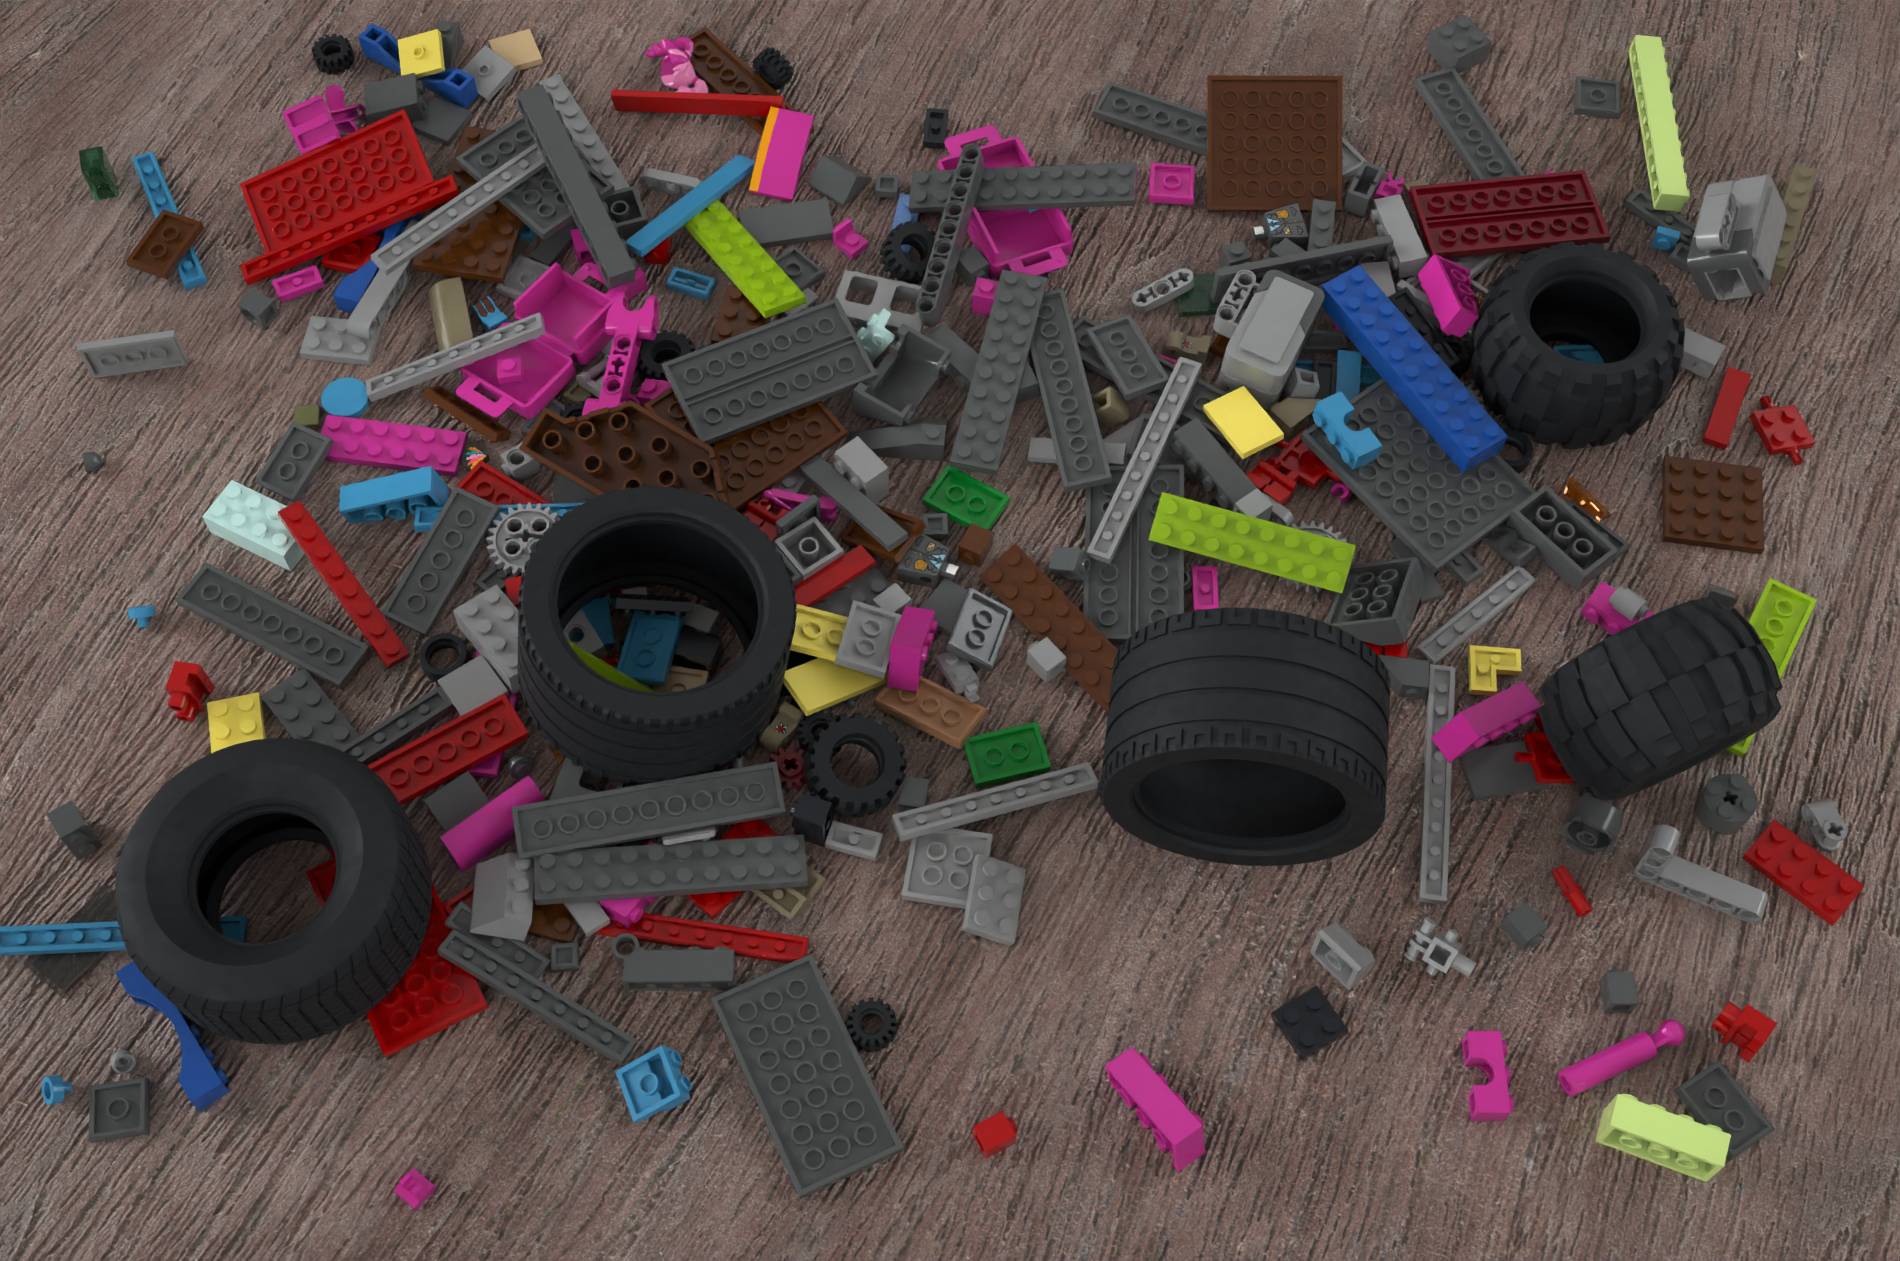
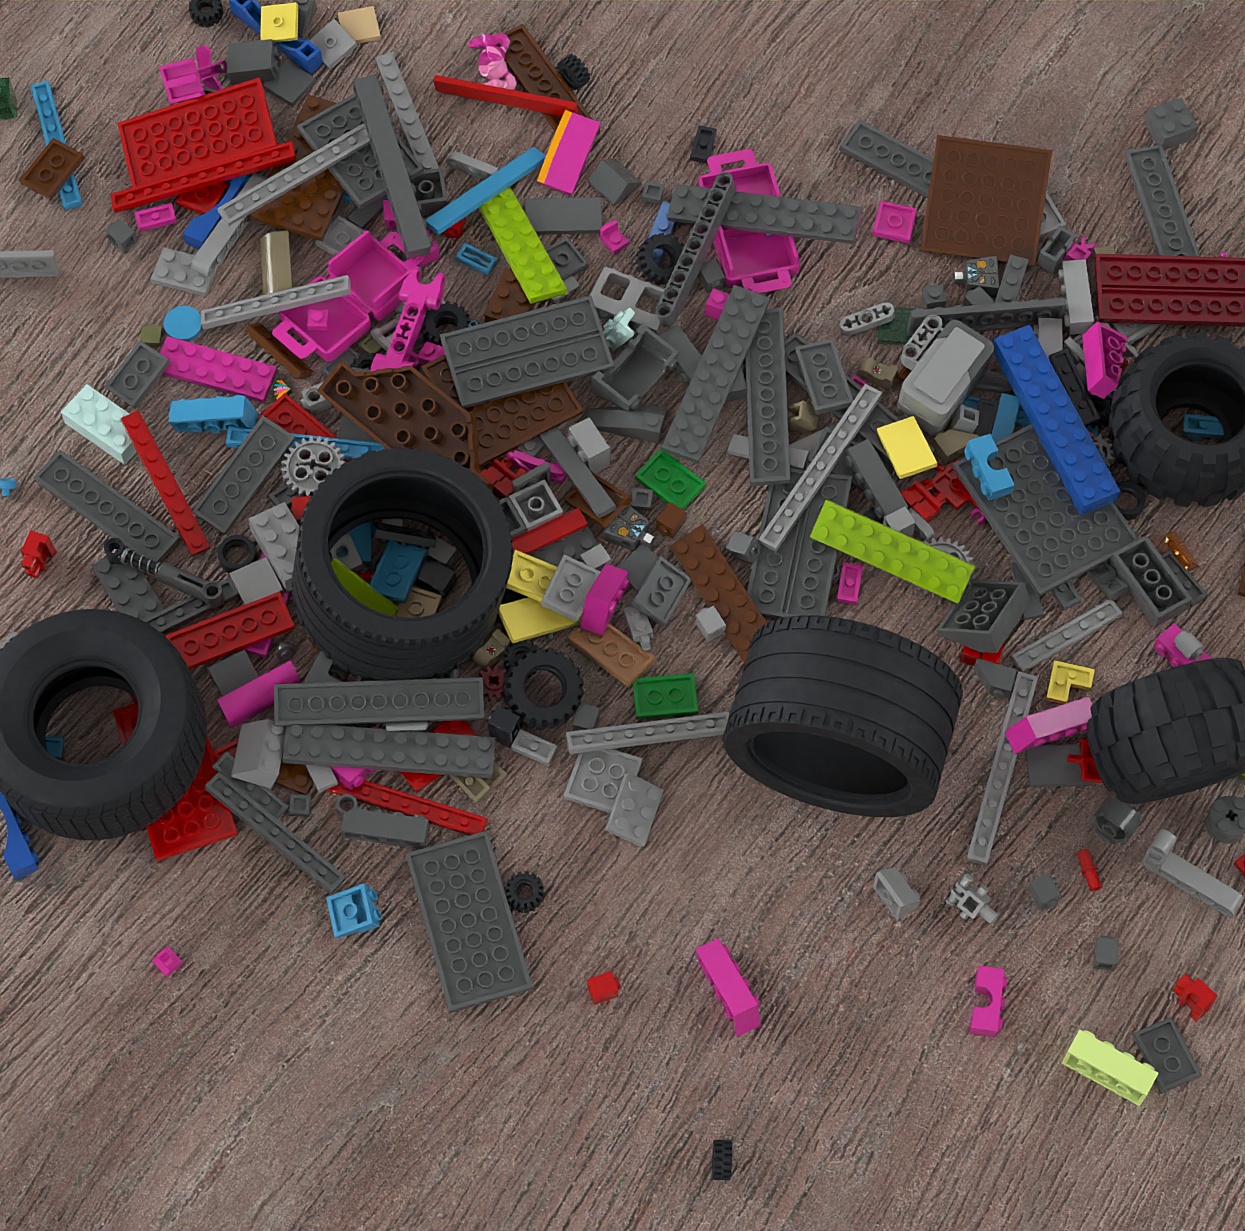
camera: 10 degrees right, 5 degrees up
(235, 720) = (70, 587): light yellow plate -> none
(356, 691) = (166, 573): none -> piece
(488, 314) = (307, 266): dark azure leg -> none
(1309, 1023) = (860, 941): black plate -> none
(1619, 1058) = (1094, 1003): dark pink piece -> none

